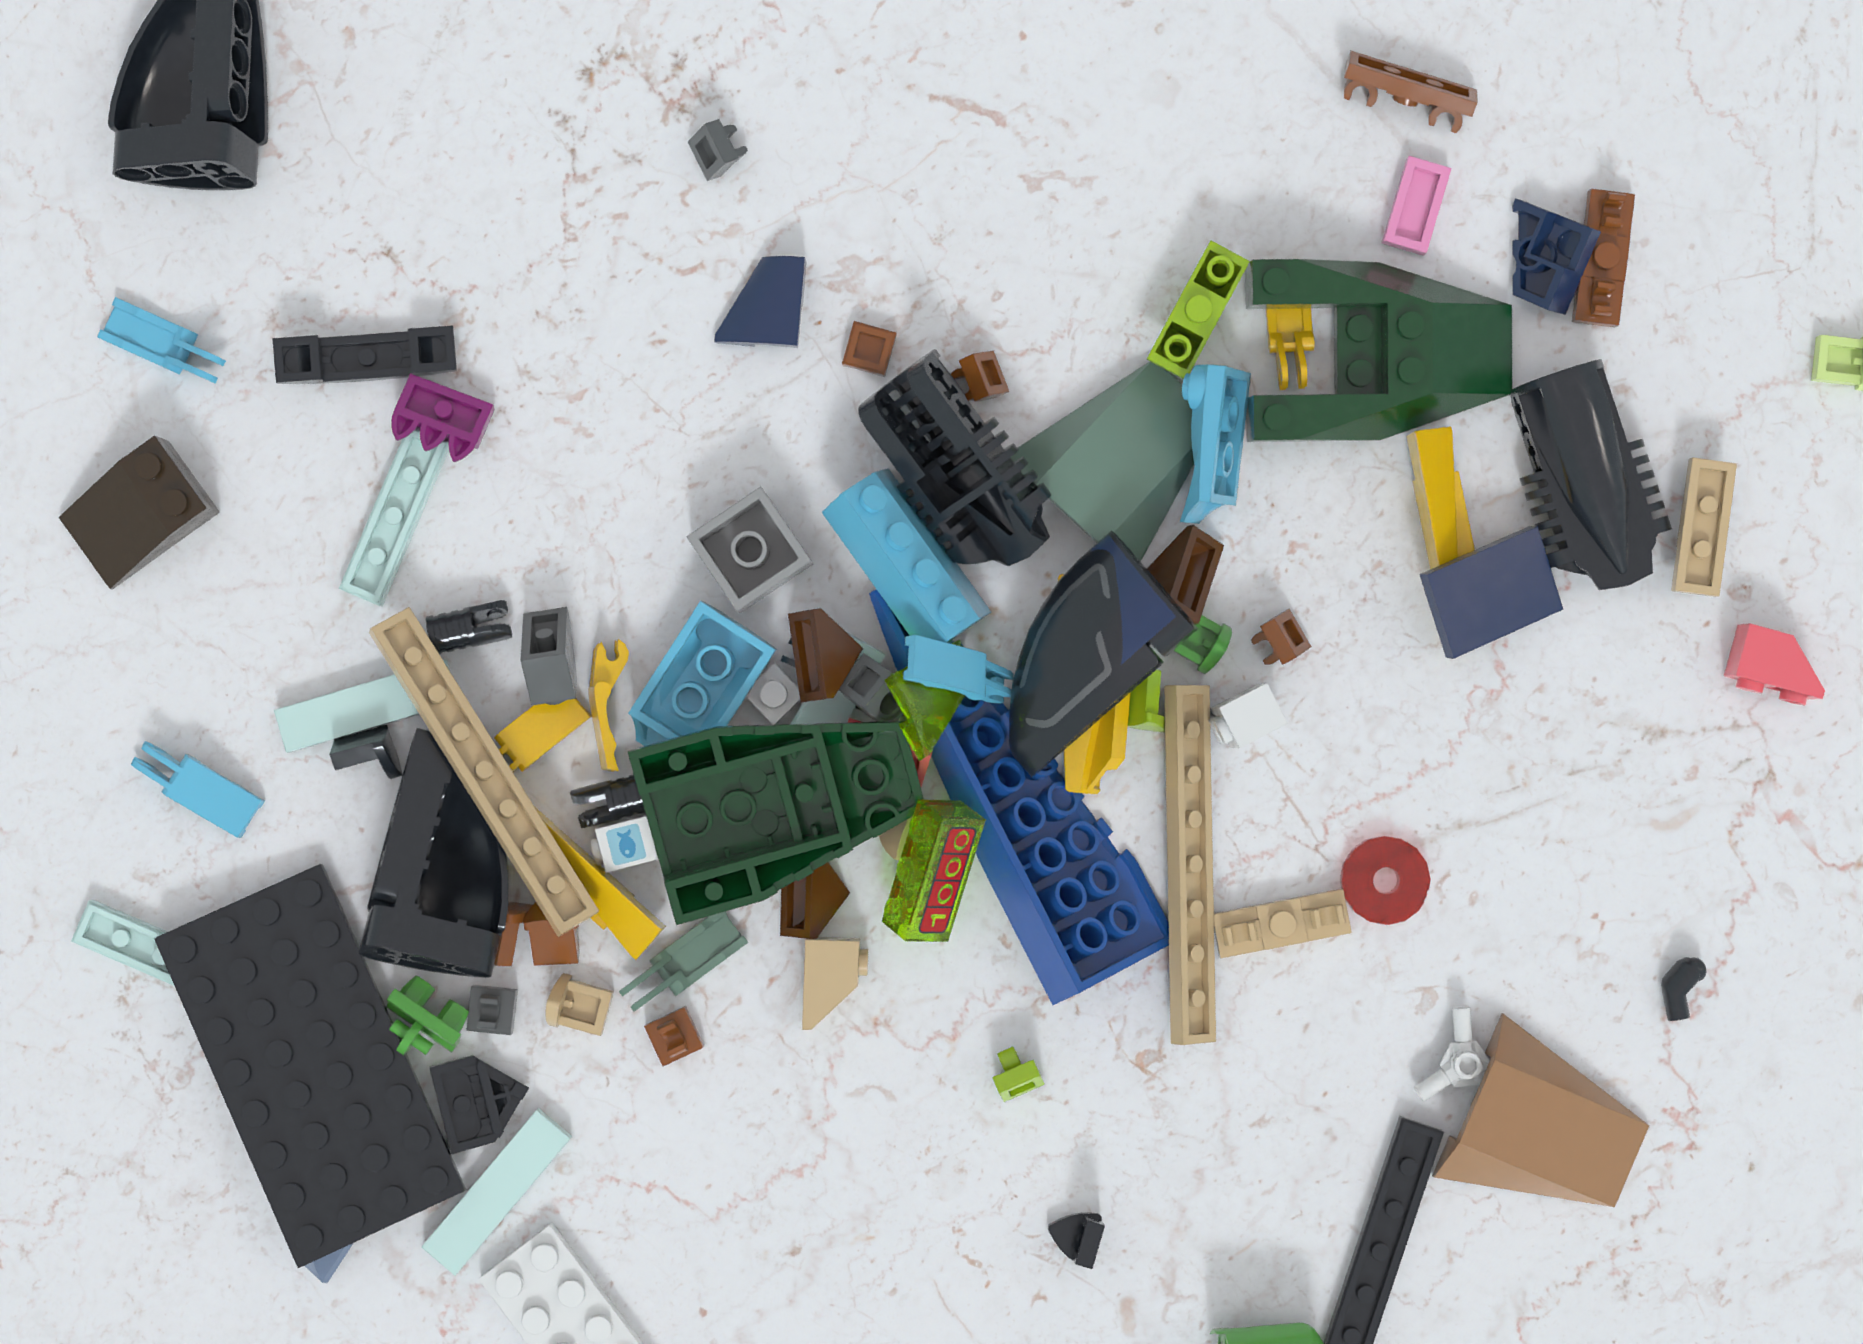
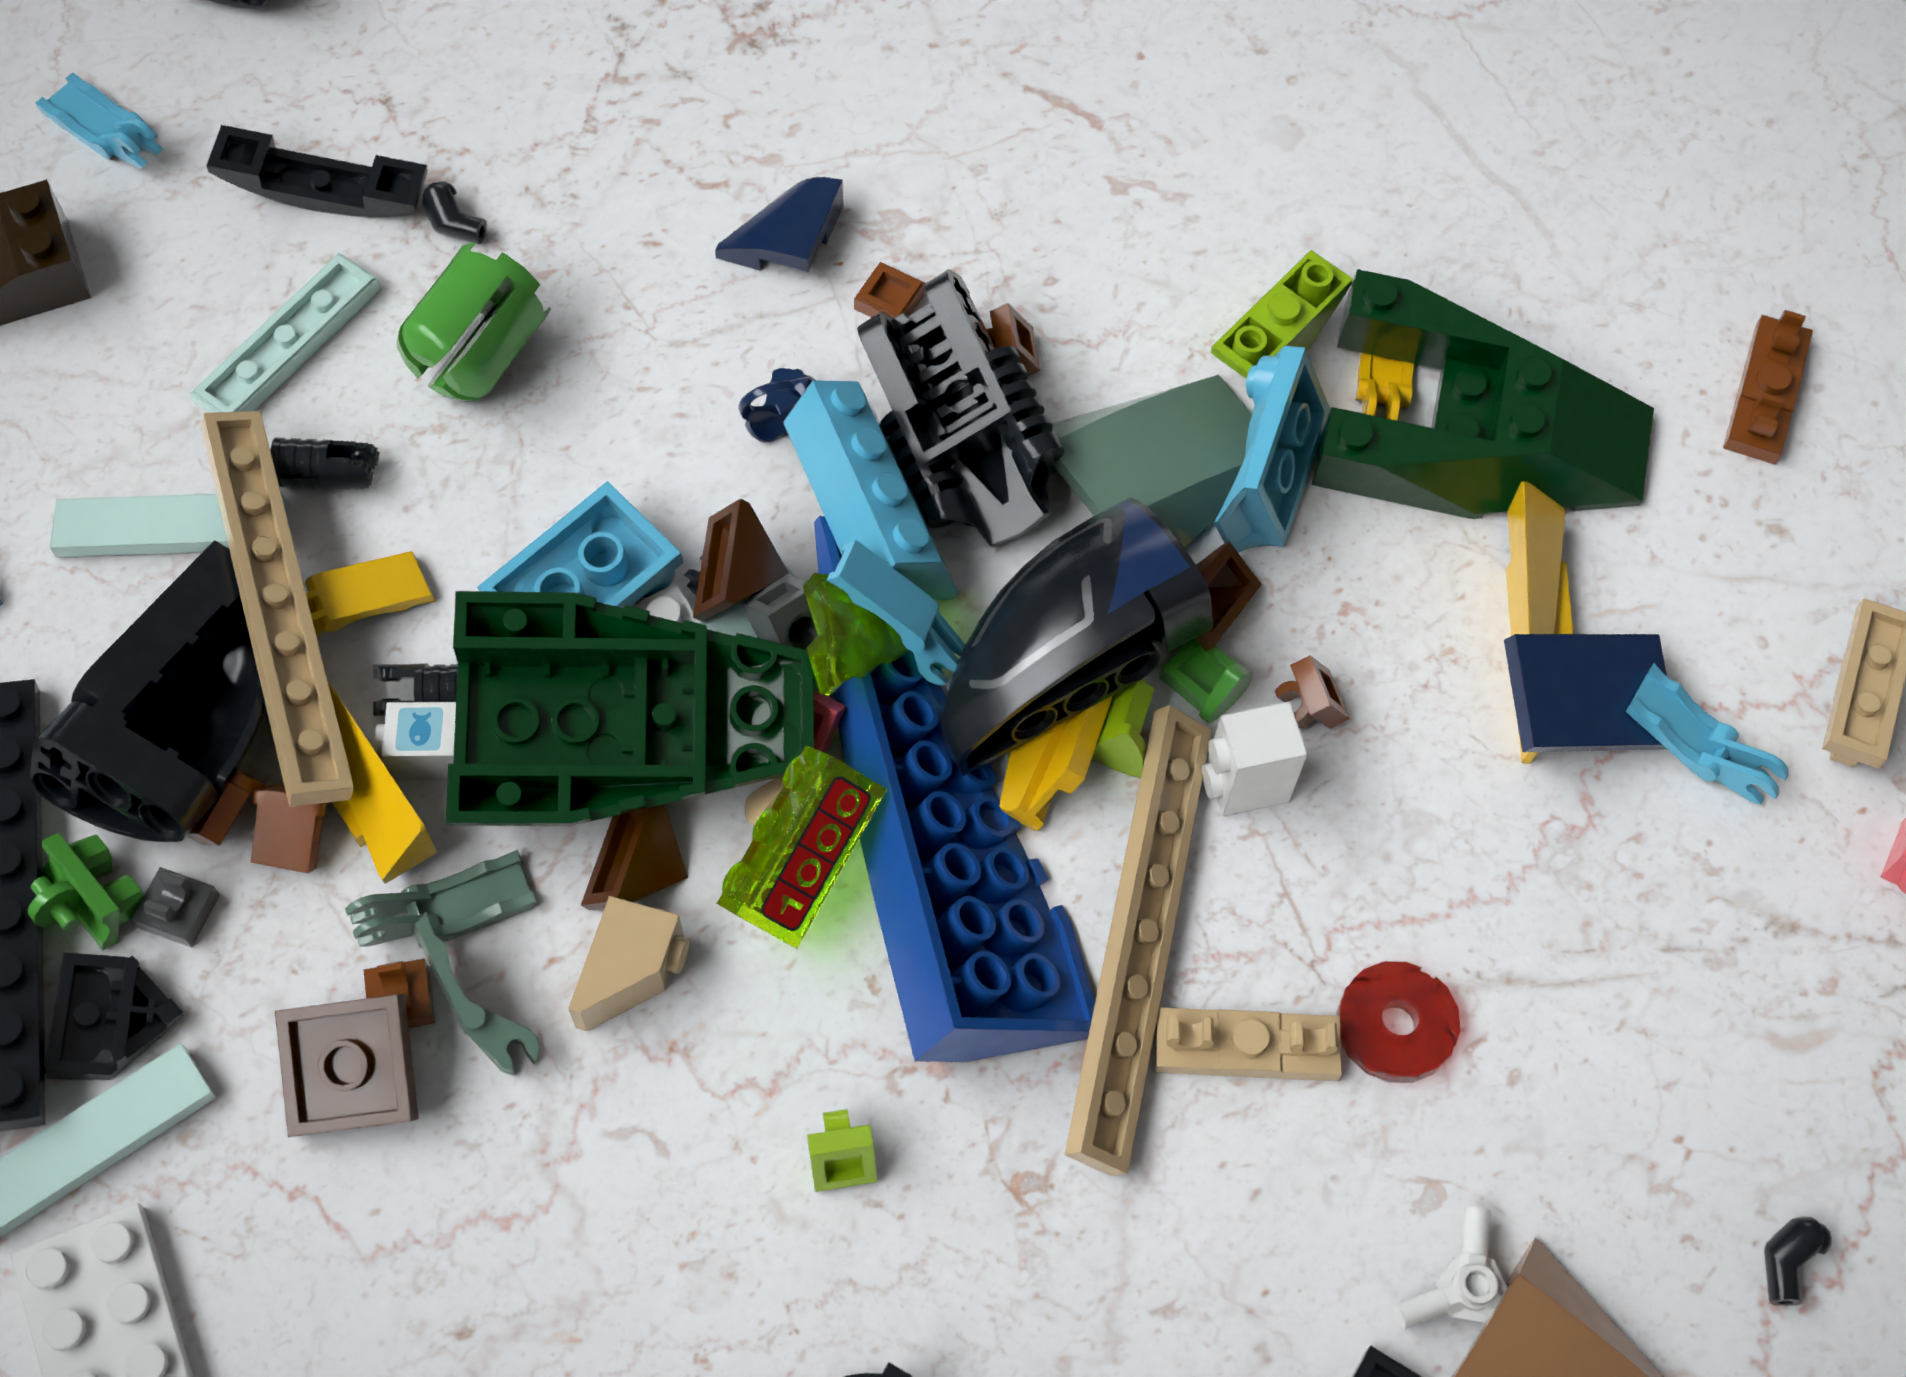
camera: 10 degrees right, 25 degrees down
(367, 747) = (156, 558): black tile -> none
(441, 415) = (381, 245): magenta plate -> none
(480, 363) = (446, 217): none -> black arm
(546, 485) = (465, 288): none -> bright green cylinder
(548, 656) = (403, 511): dark grey slope -> none
(578, 1005) = (285, 926): tan tile -> none
(602, 679) = (461, 554): yellow arm -> none
(659, 1102) = (346, 1065): none -> hinge
(714, 149) = (776, 73): dark grey tile -> none
(747, 1050) = (486, 1029): none -> sand green arm
(749, 550) = (686, 448): light grey brick -> none
(815, 481) = (783, 393): none -> dark blue piece
(1409, 88) = (1563, 176): plate -> none
(1416, 205) = (1553, 292): bright pink tile -> none
(1549, 256) = (1706, 368): dark blue slope -> none
(1575, 601) = (1701, 740): none -> medium azure arm
(1587, 477) = (1727, 608): black connector -> none

